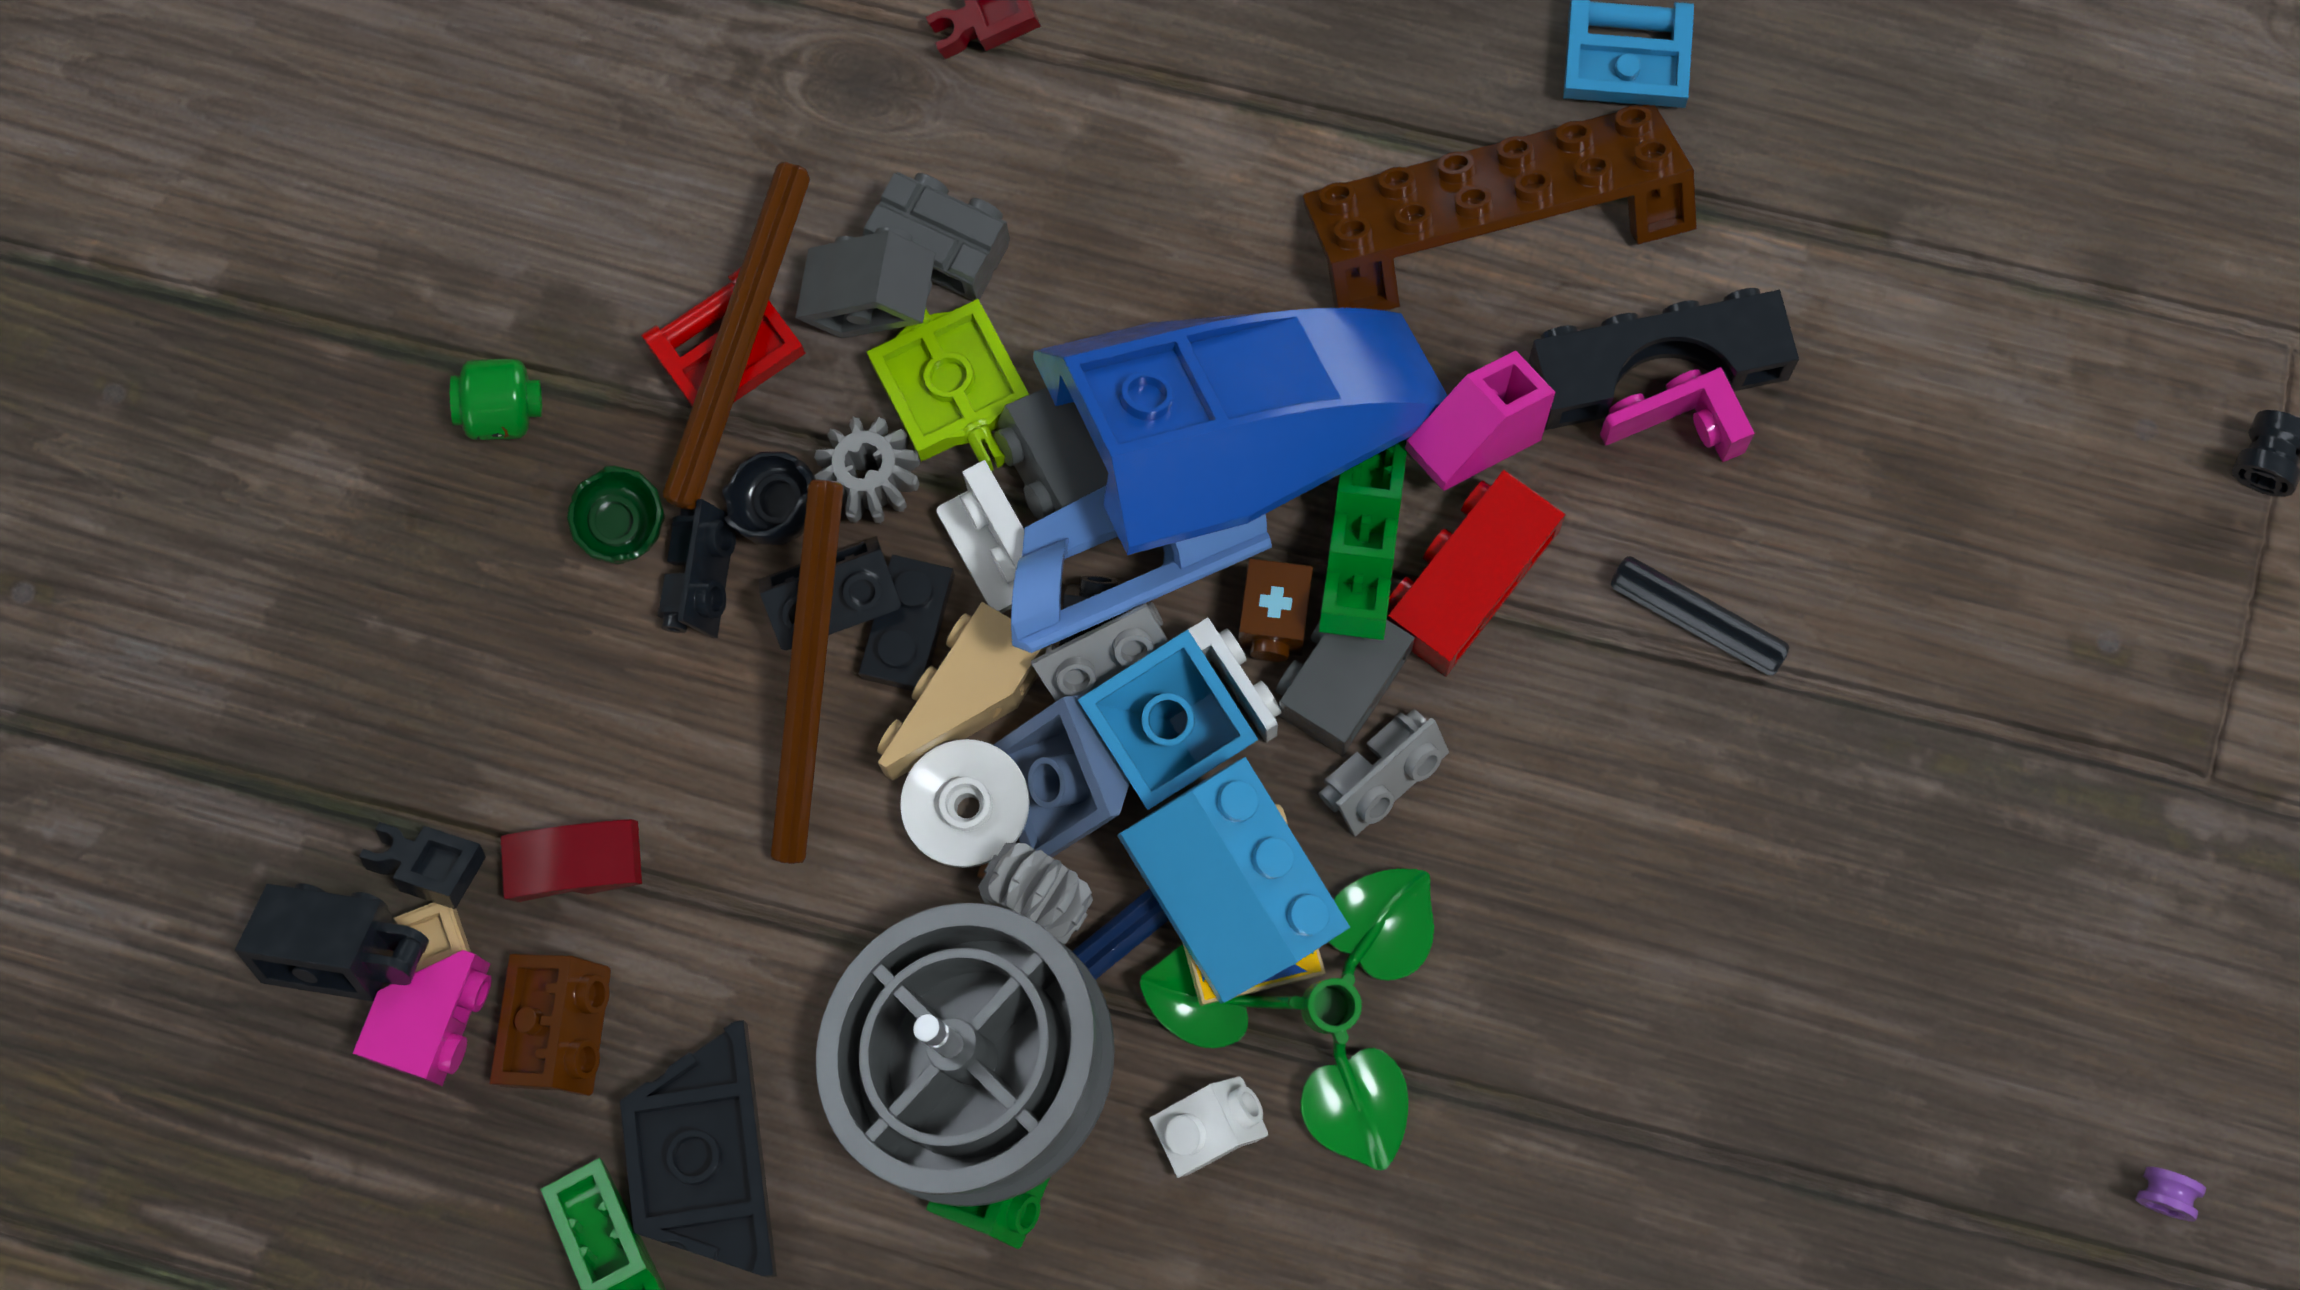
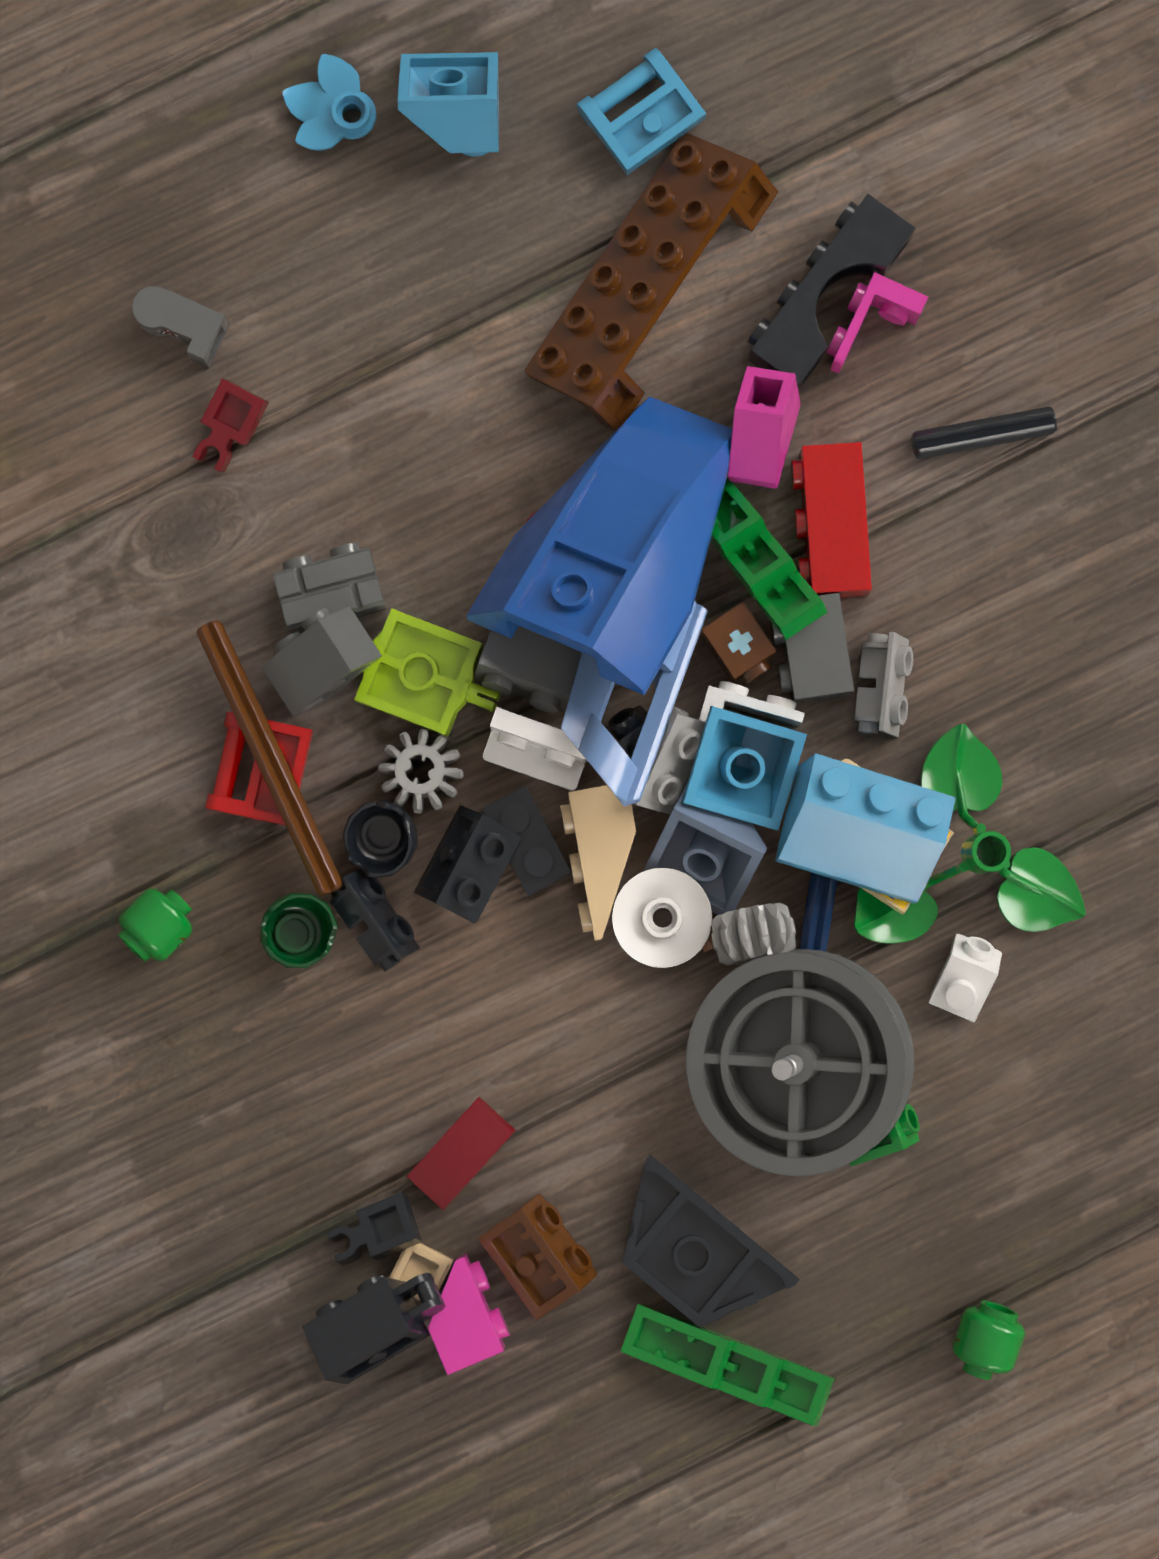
camera: 45 degrees left, 10 degrees up
(807, 671) = (505, 922): reddish brown axle -> none

